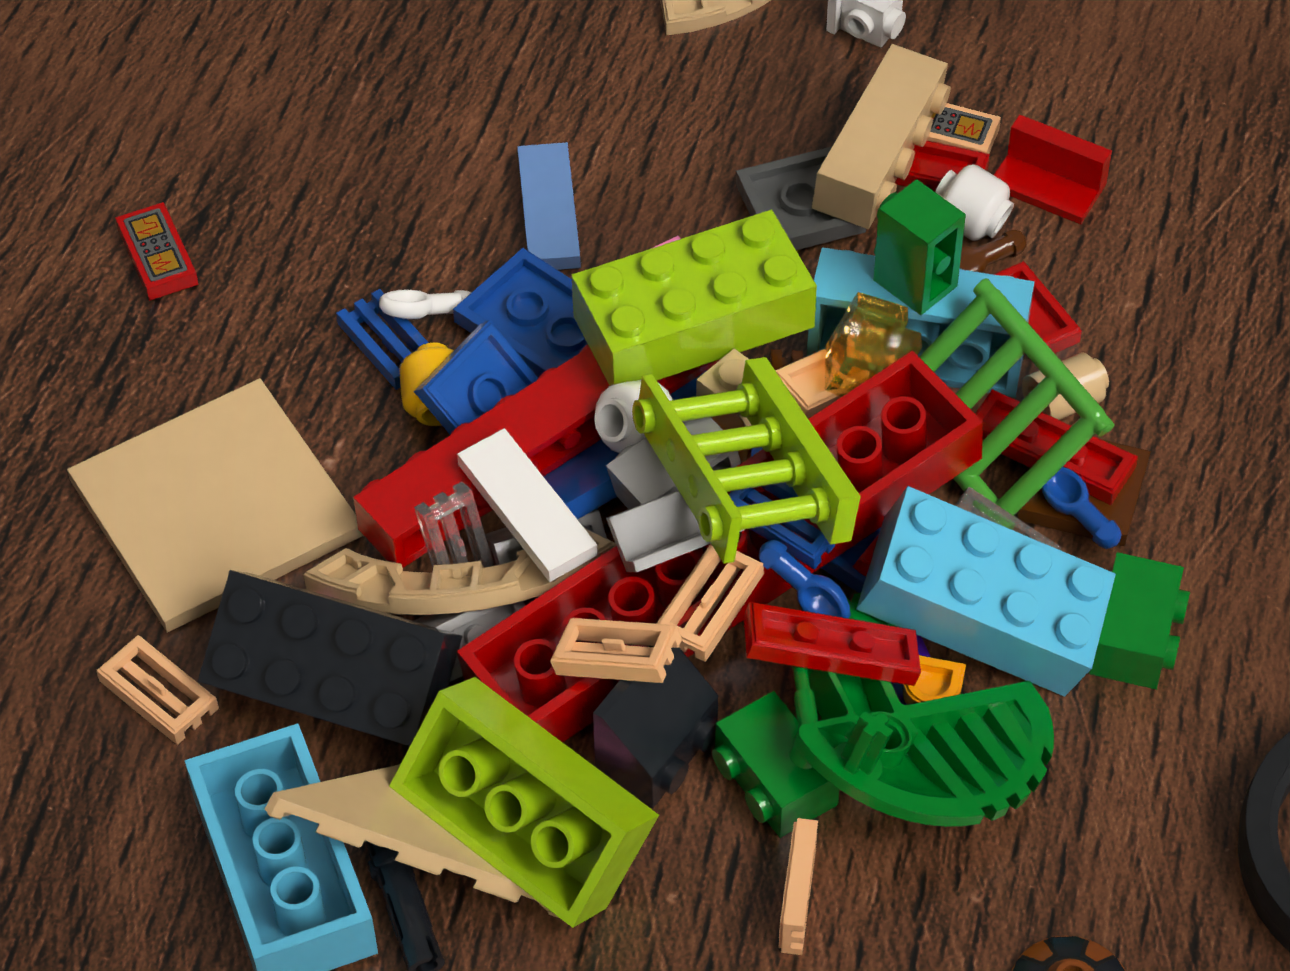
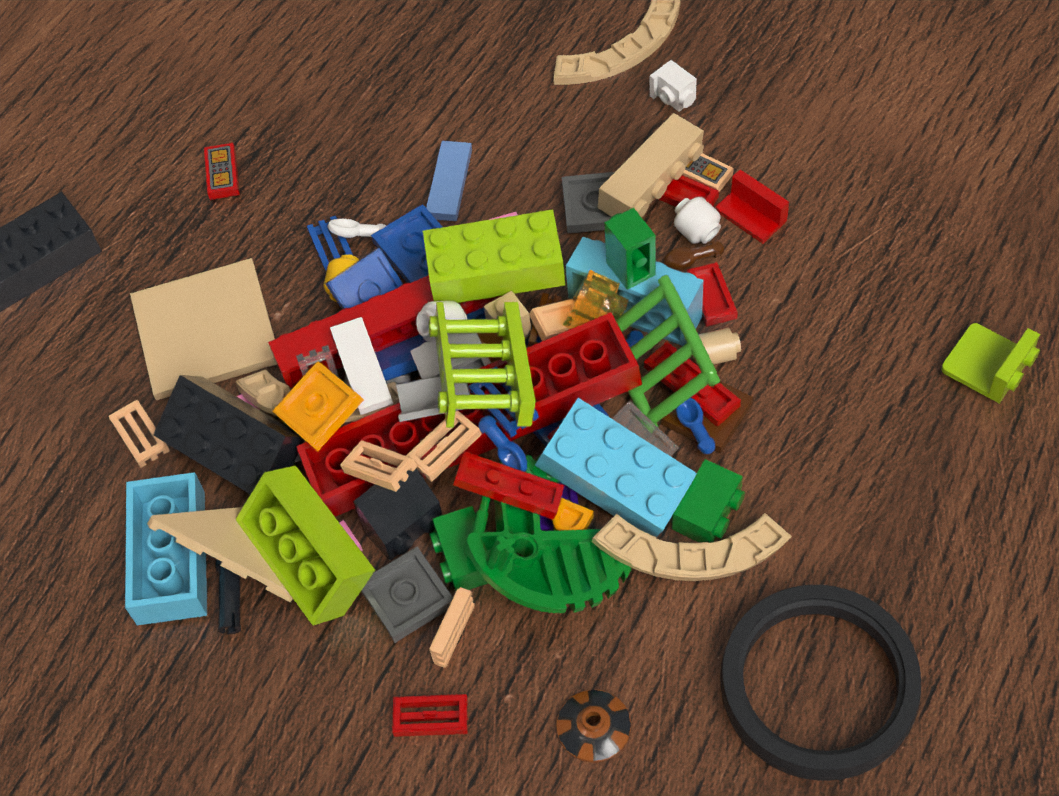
camera: 20 degrees right, 5 degrees up
(476, 579) = (318, 405): none -> light orange tile
(707, 852) = (406, 594): none -> dark grey plate
(1135, 710) = (691, 560): none -> tan tile

